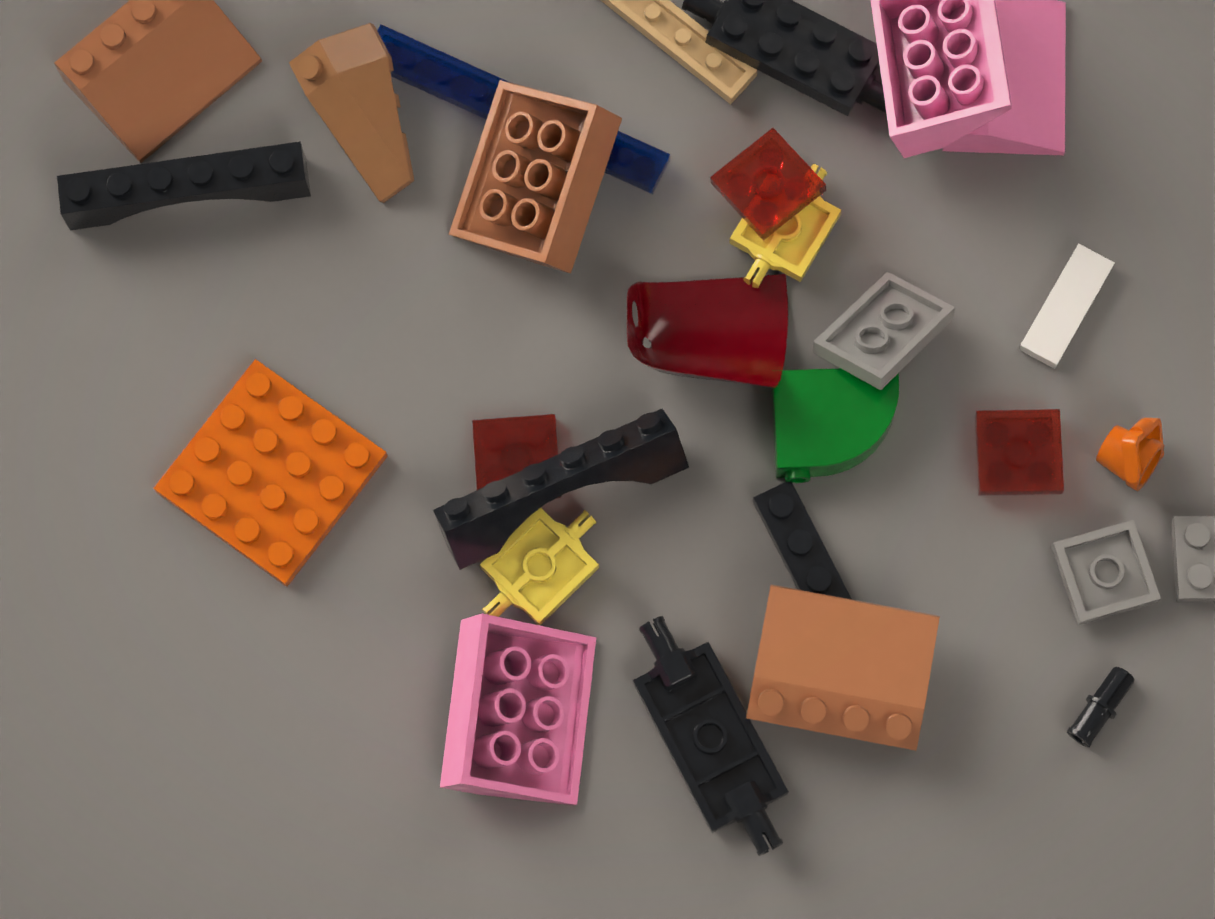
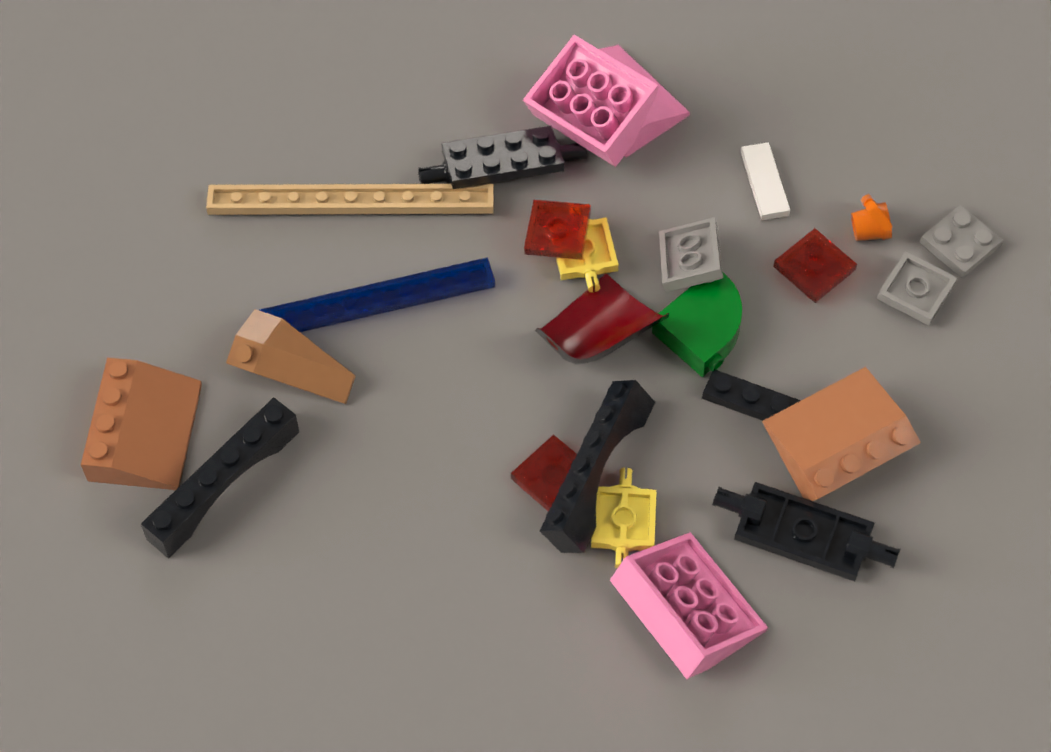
camera: 45 degrees left, 15 degrees down
(270, 472) = (419, 594): orange plate -> none
(535, 175) = (424, 319): nougat slope -> none
(1101, 706) = (982, 354): black axle -> none

